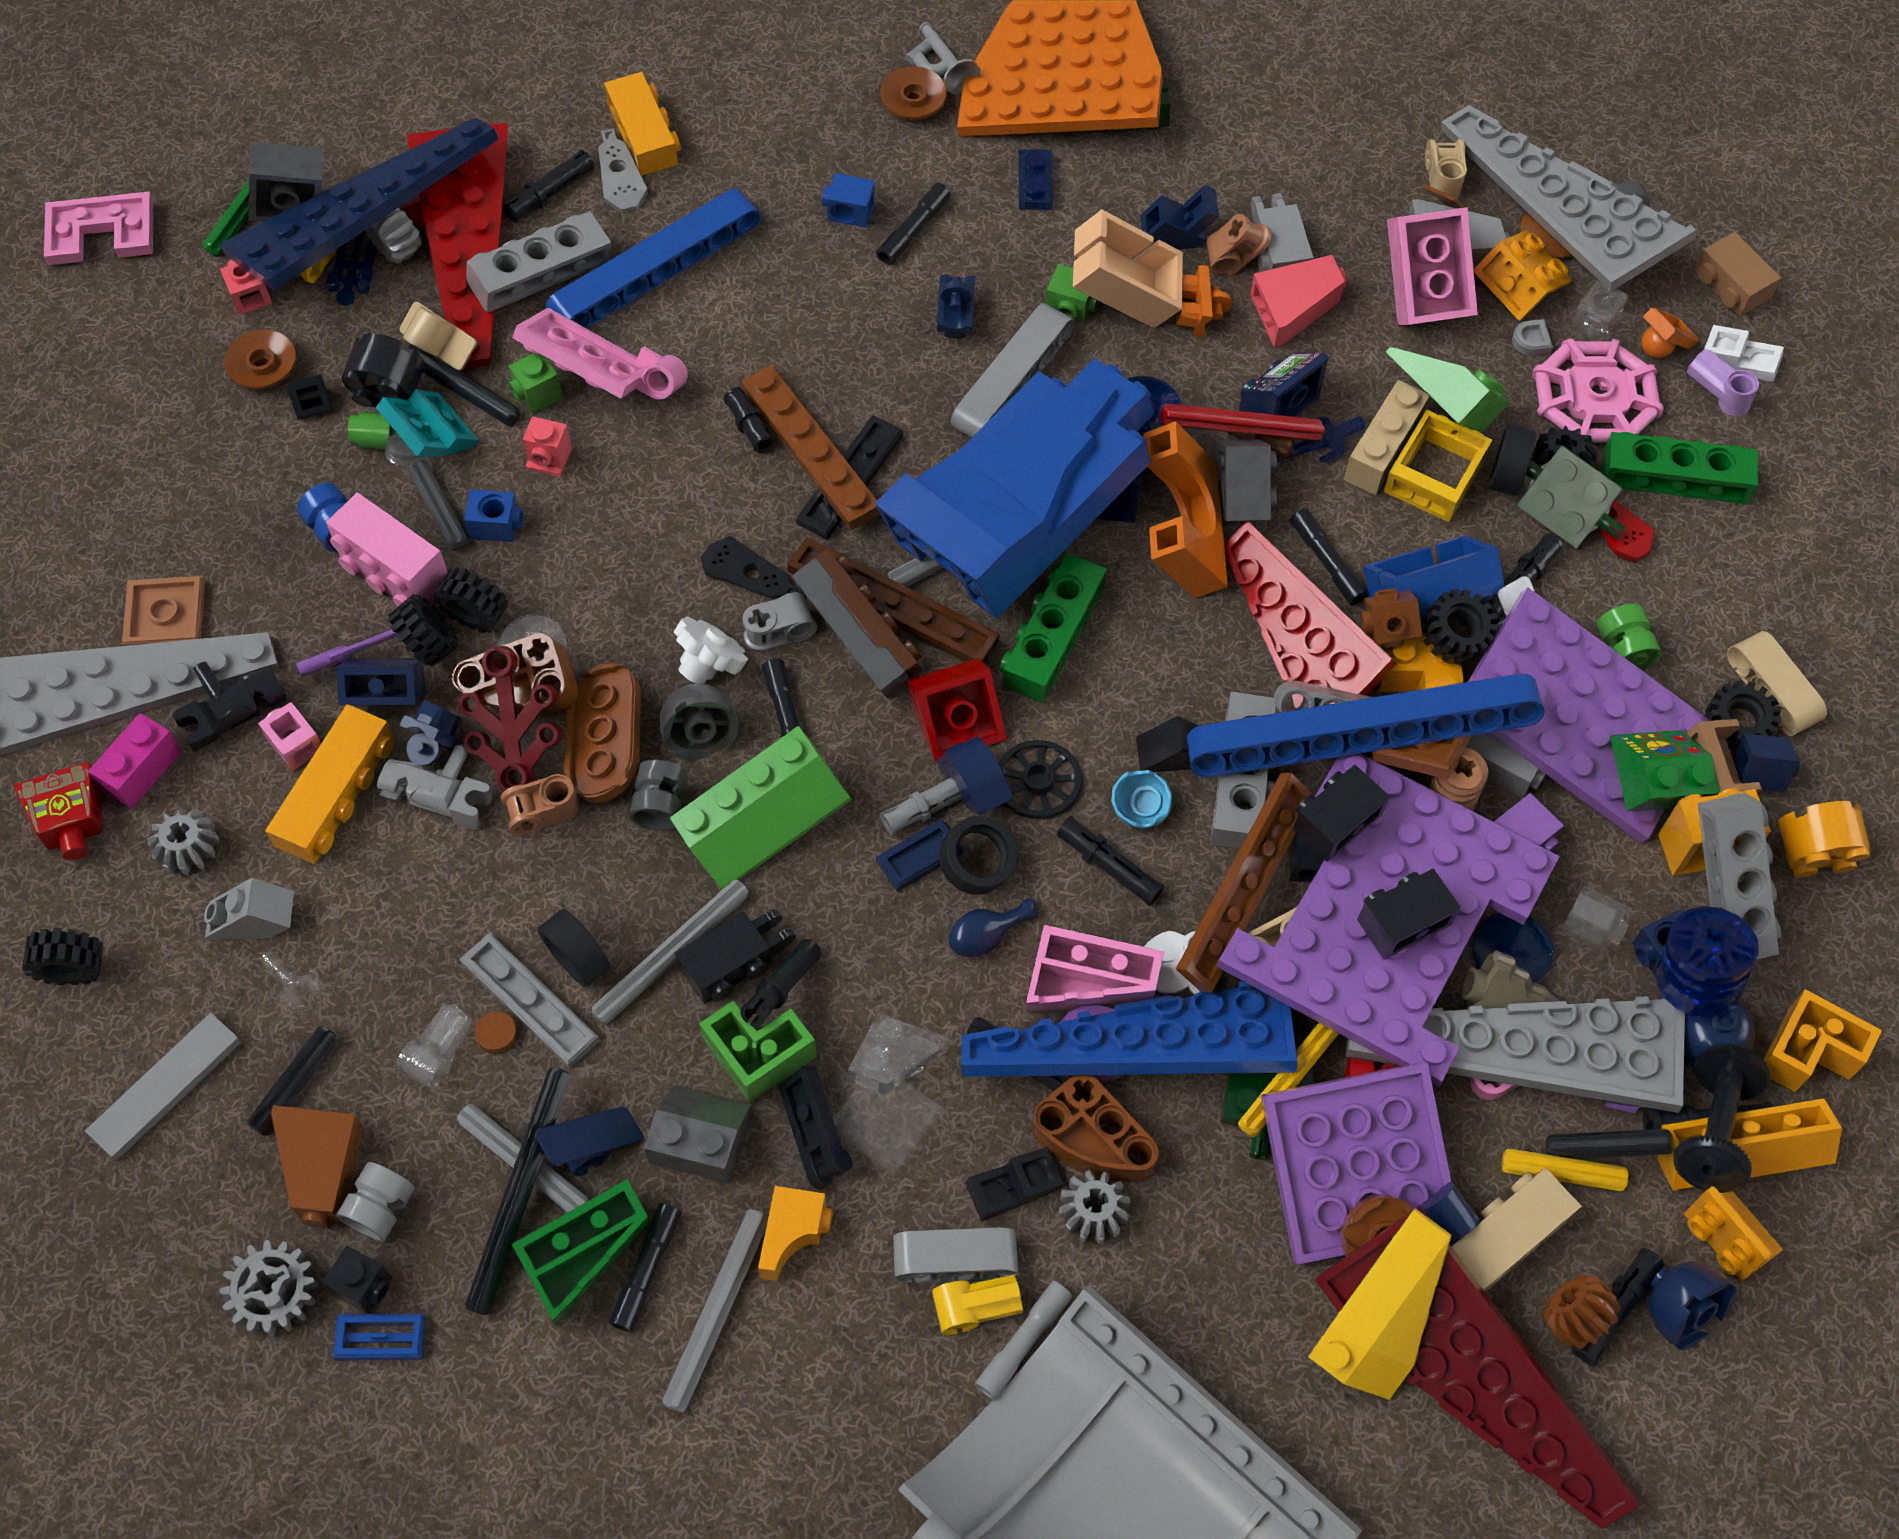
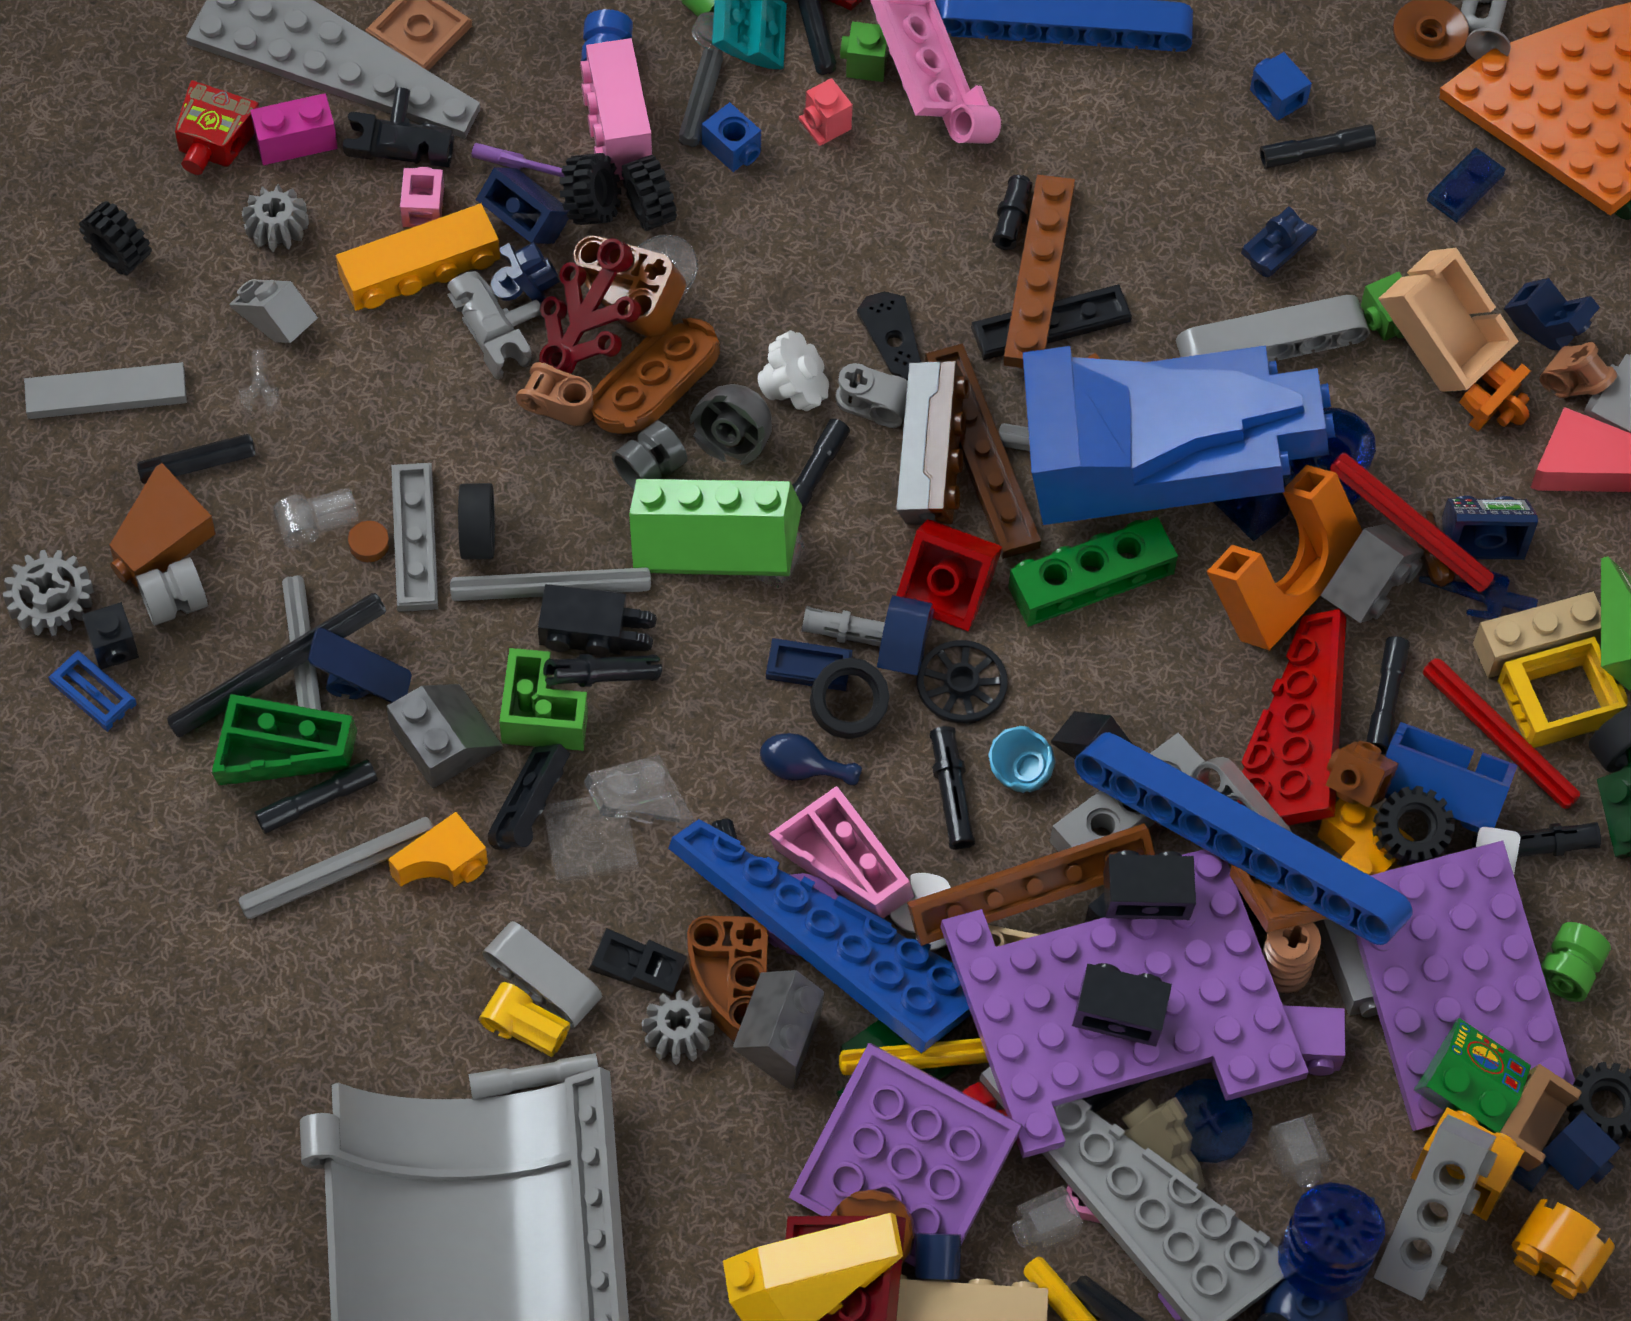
camera: 40 degrees right, 0 degrees up
(1176, 1137) = (780, 1024): none -> flat silver slope
(1424, 524) = (1501, 733): none -> red axle
(1488, 1119) = (1047, 1221): none -> clear brick

